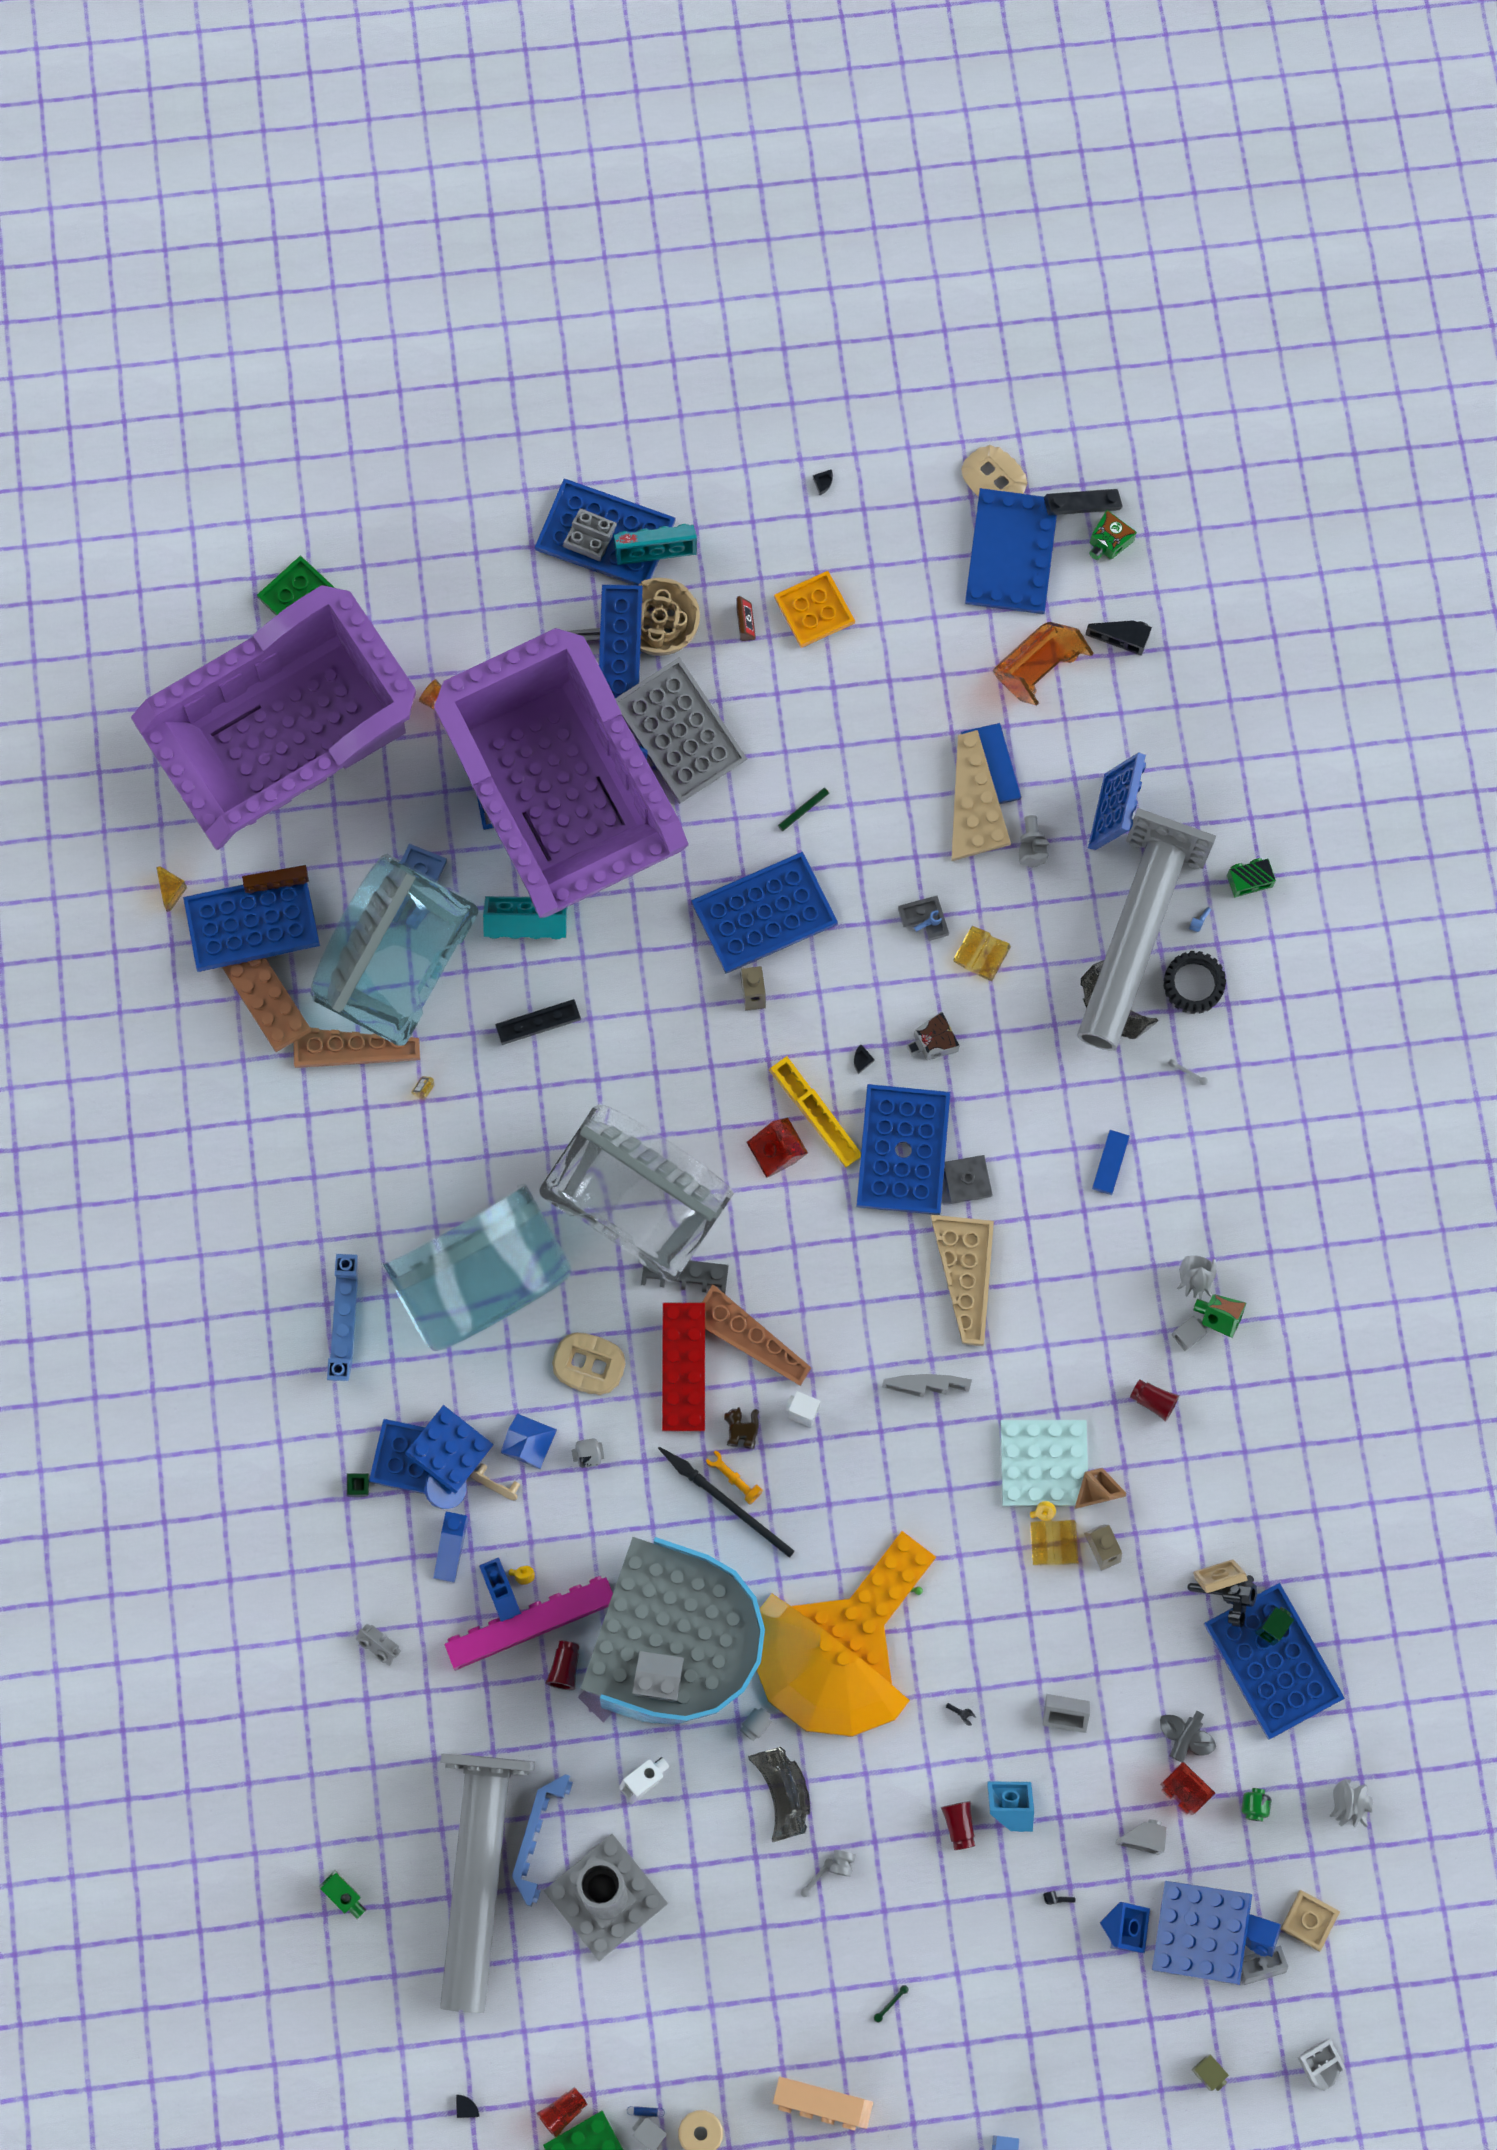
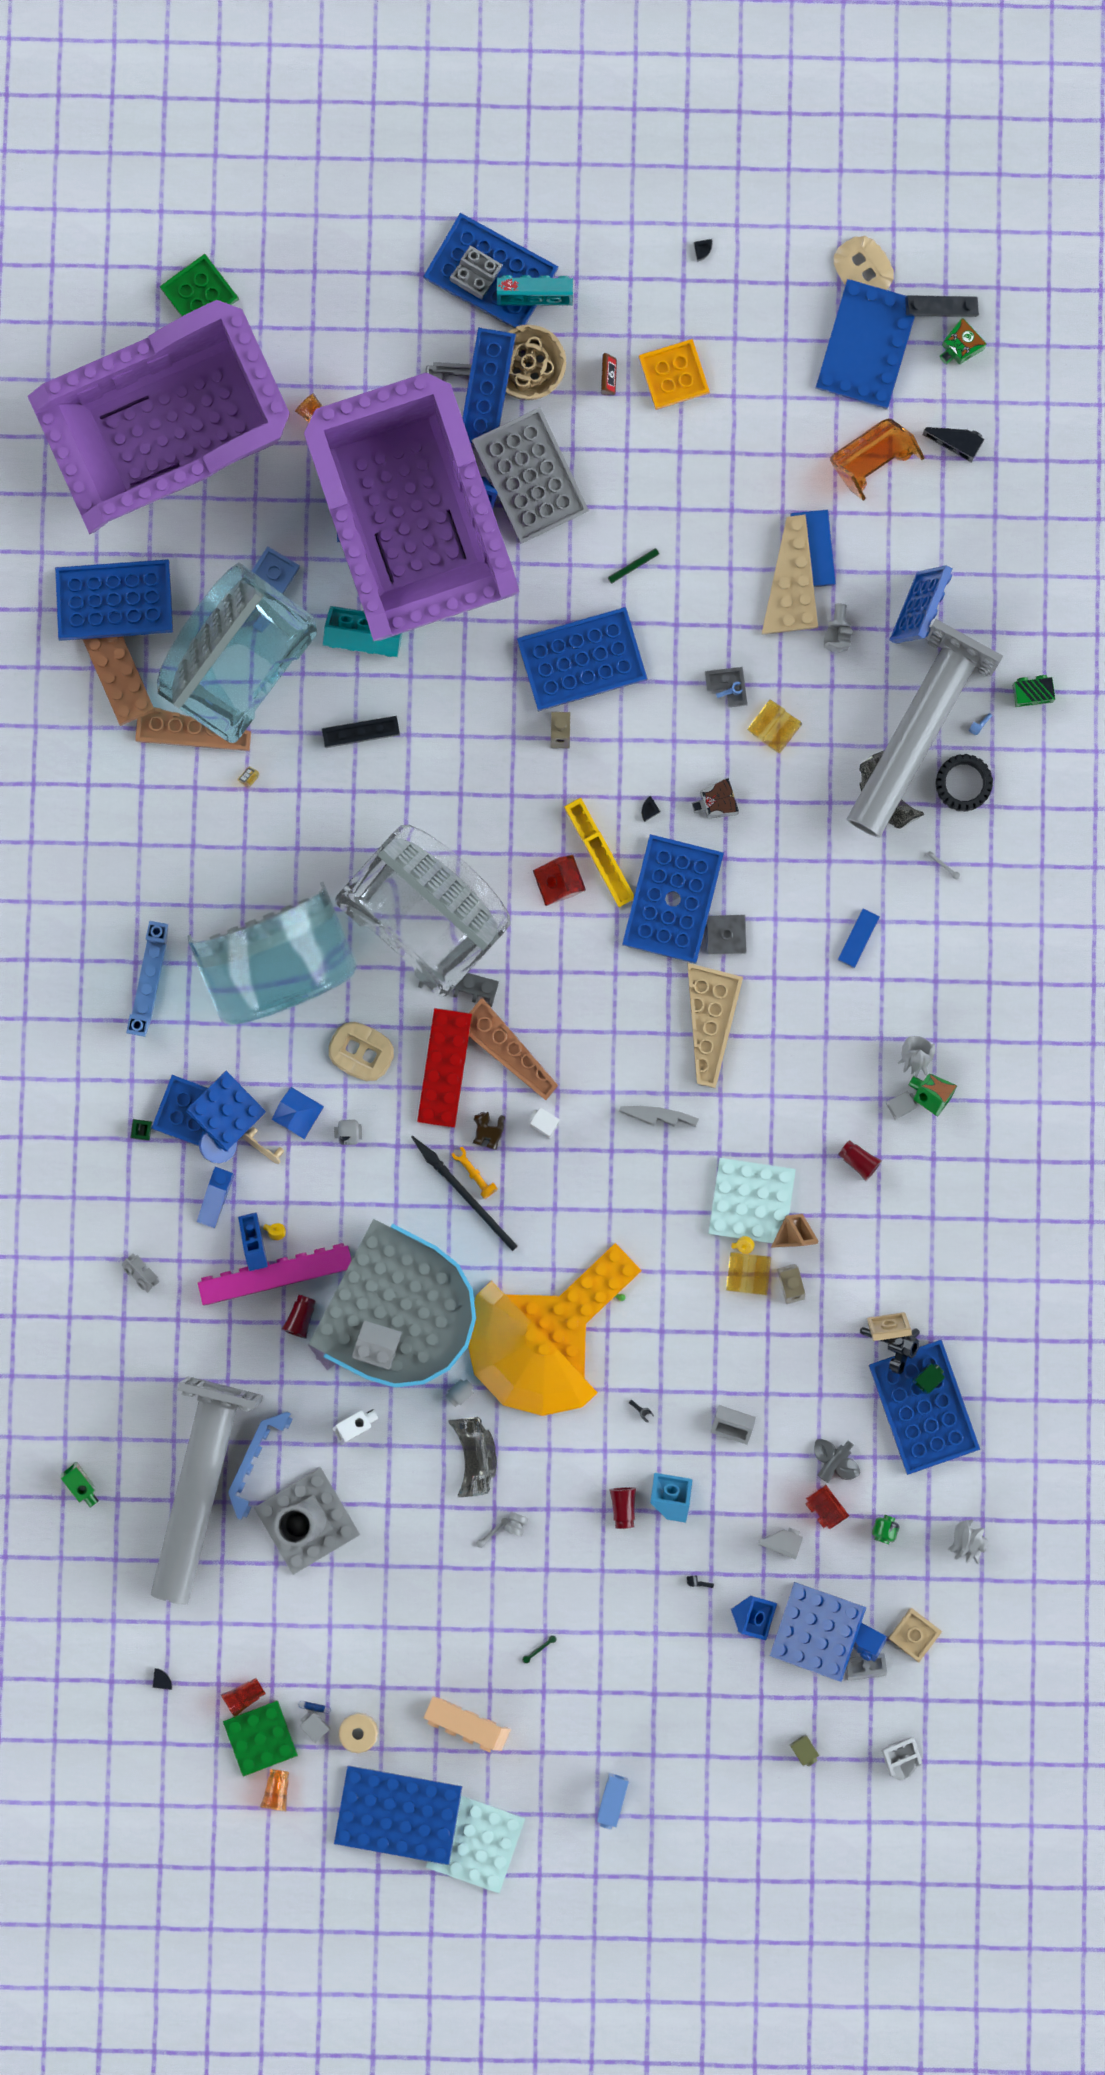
camera: 10 degrees right, 10 degrees up
(171, 887) = (45, 557): clear yellow slope -> none
(275, 879) = (141, 563): reddish brown piece -> none

